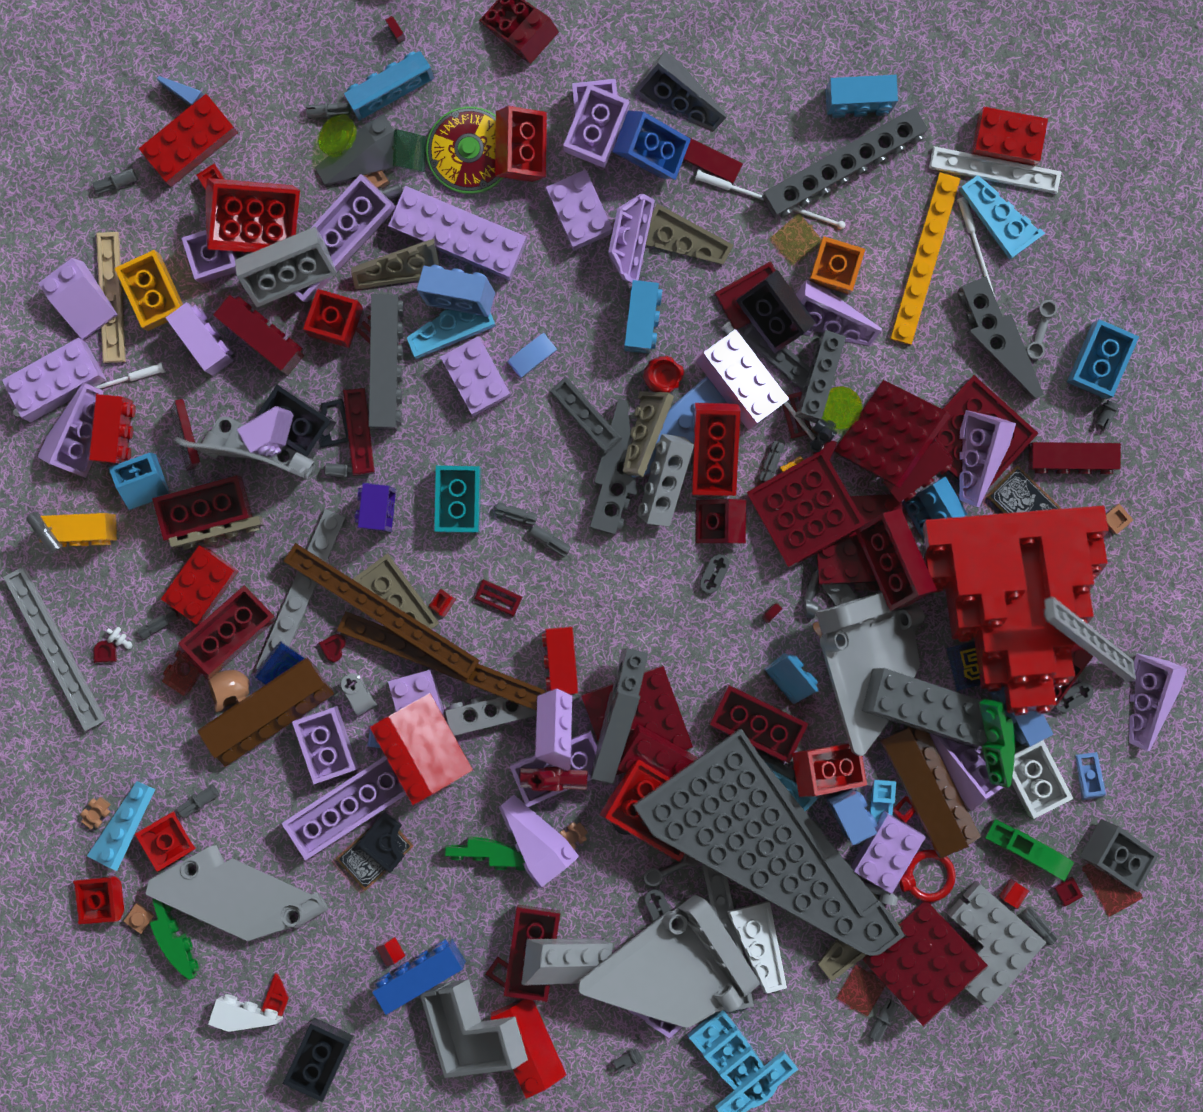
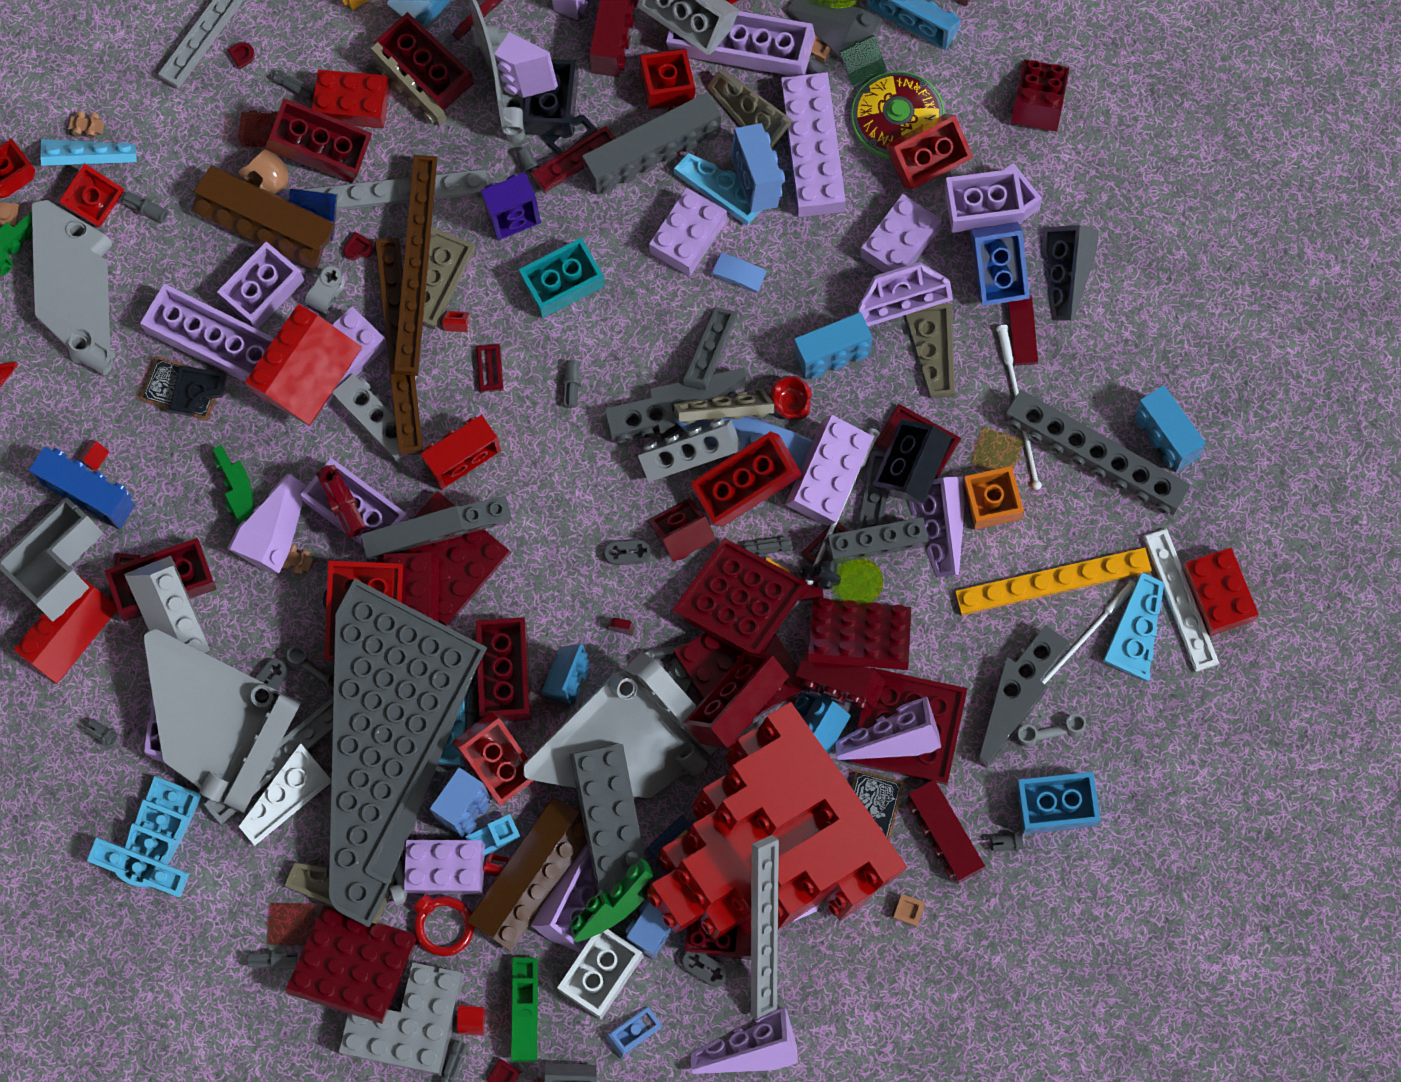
camera: 60 degrees right, 15 degrees down
(120, 639) = (261, 60): white hair -> none
(515, 513) = (579, 340): dark grey axle -> none
(554, 728) = (389, 473): lavender slope -> none

